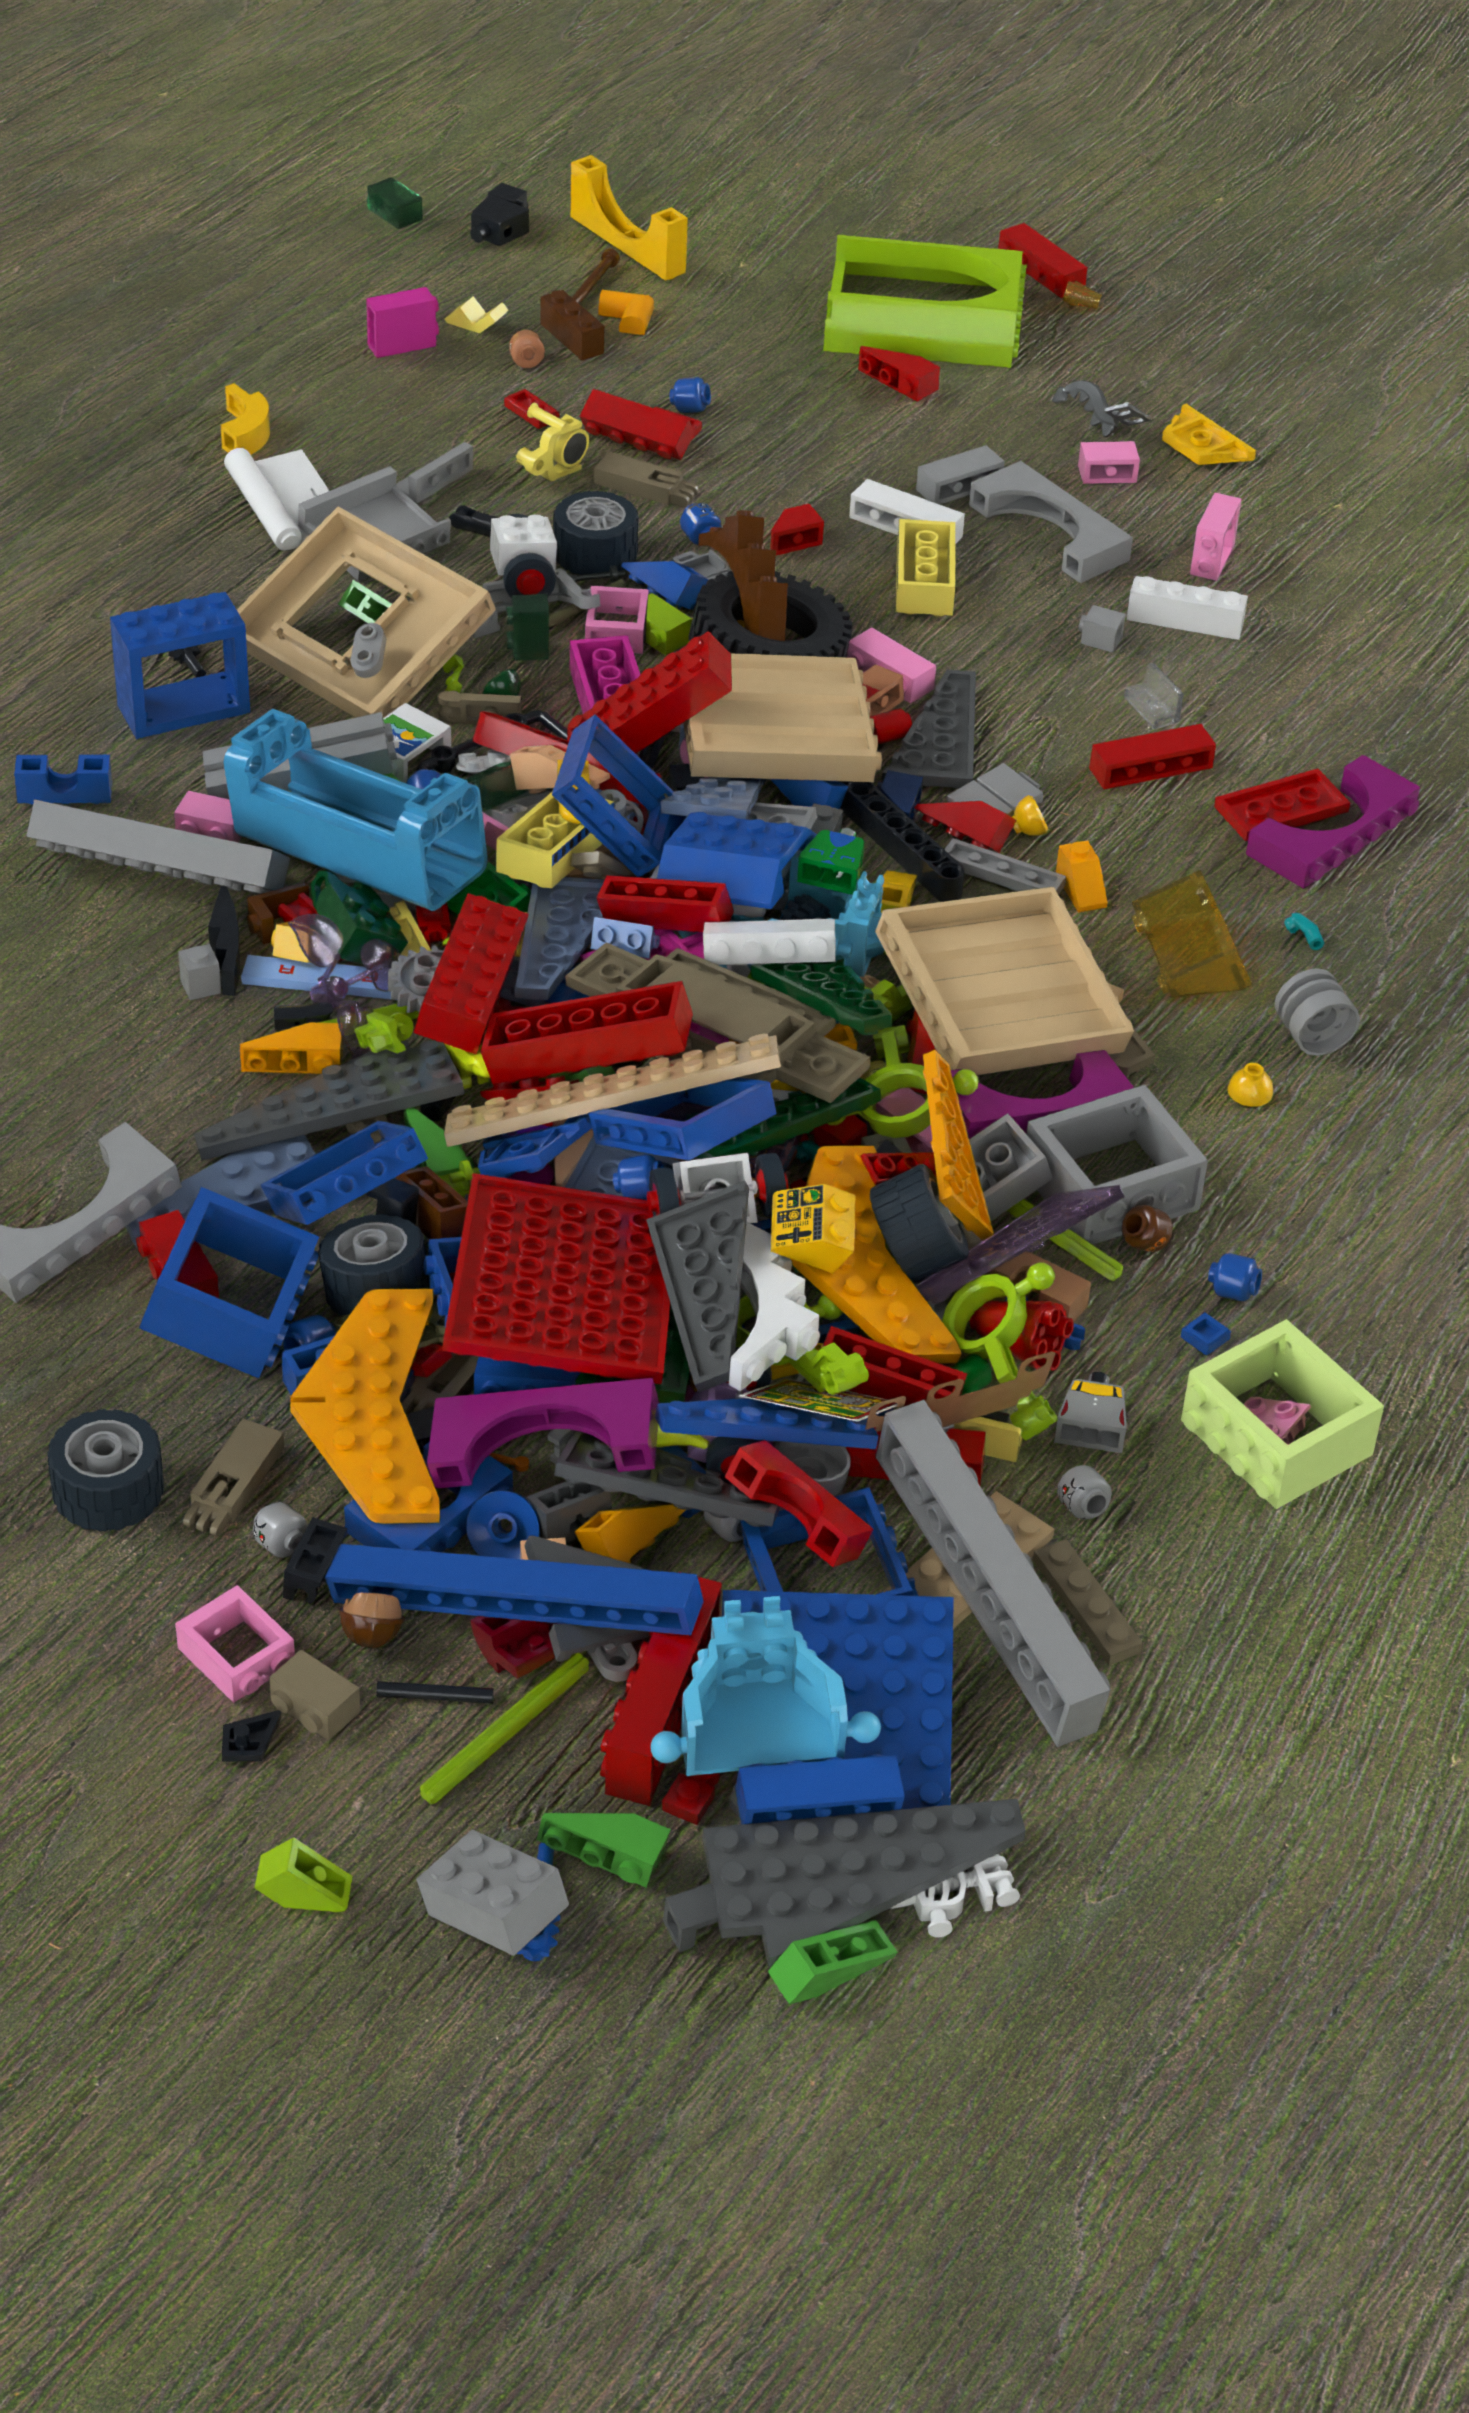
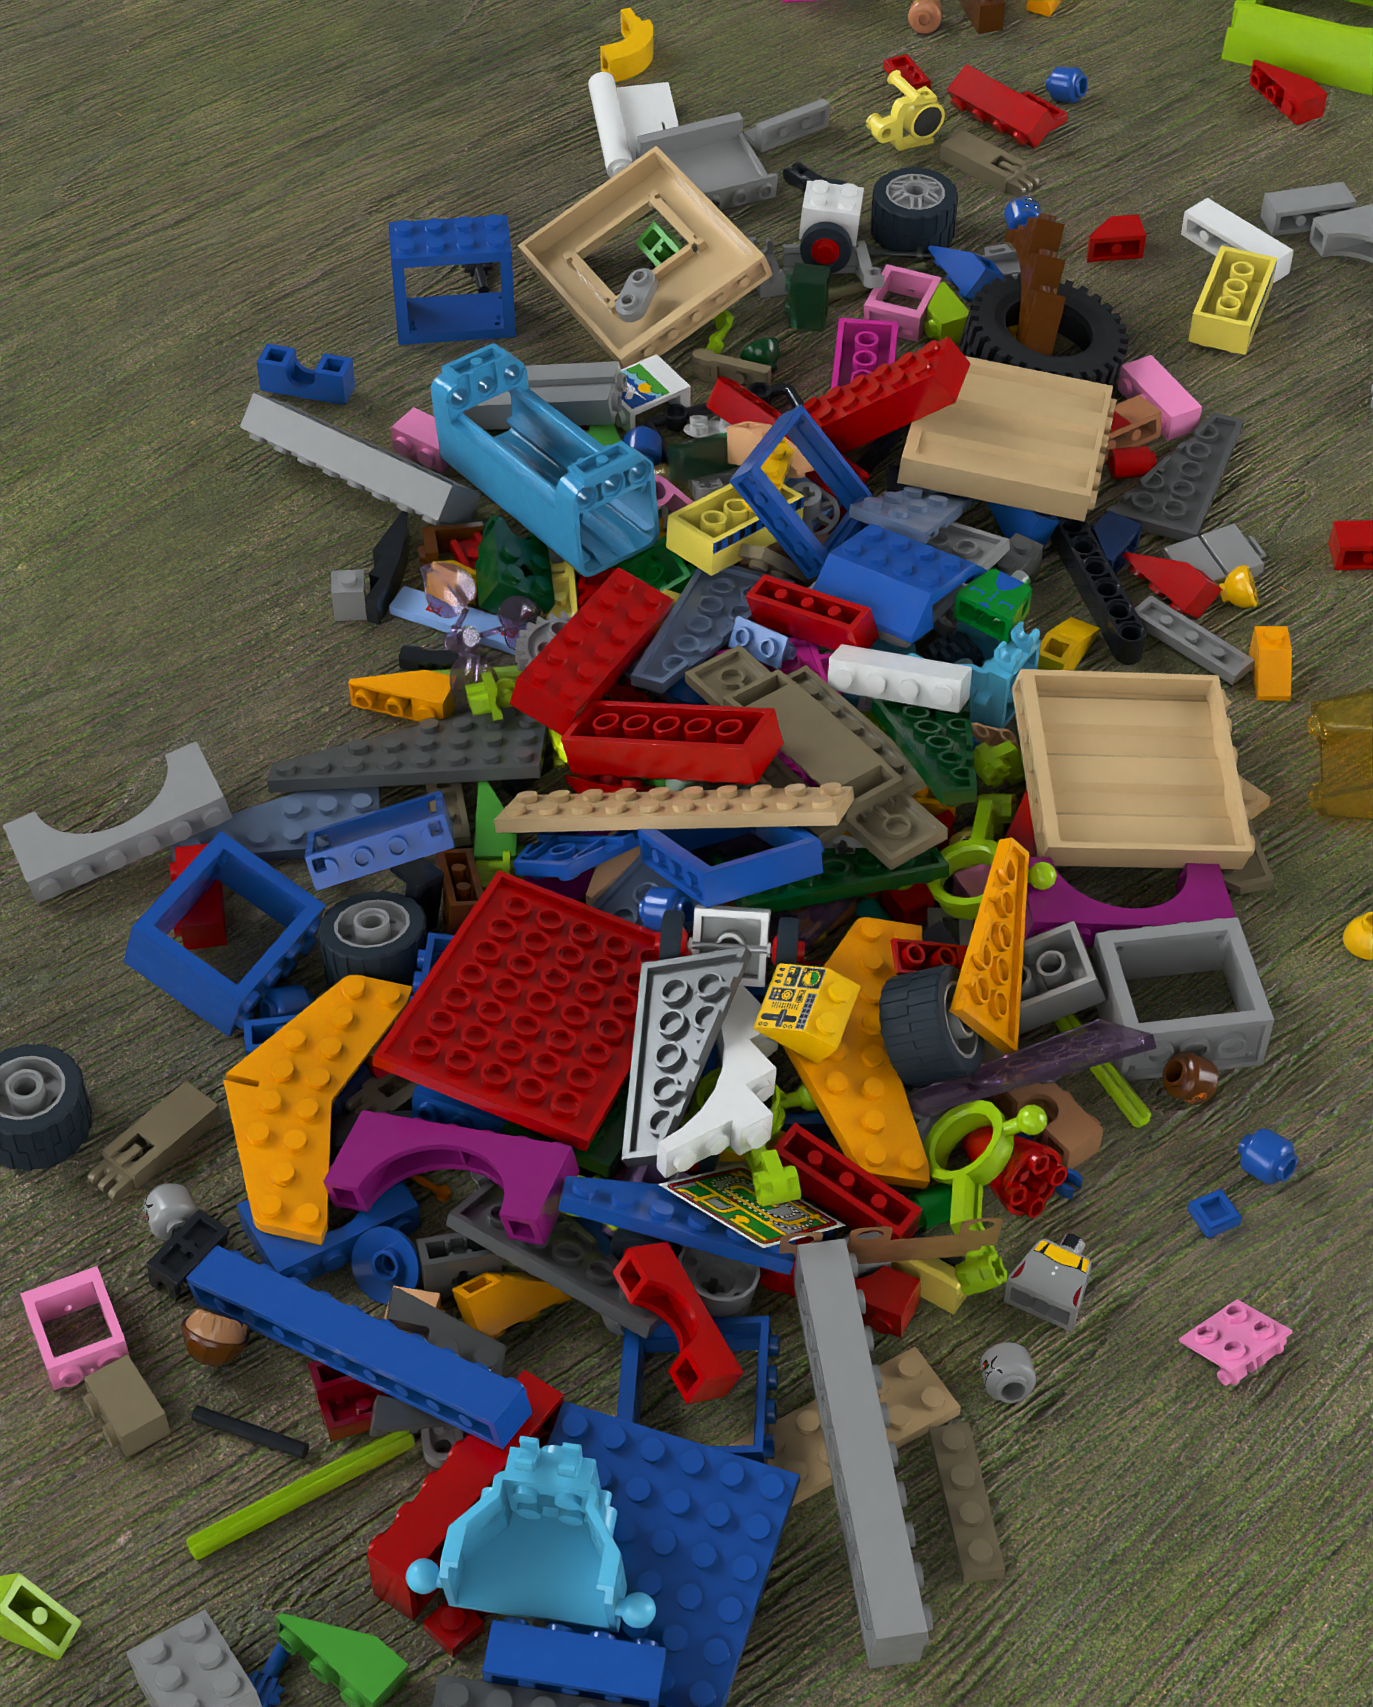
camera: 20 degrees right, 5 degrees up
(249, 1737) = (47, 1435): black piece -> none
(1249, 1446) = (1273, 1396): yellowish green window -> none

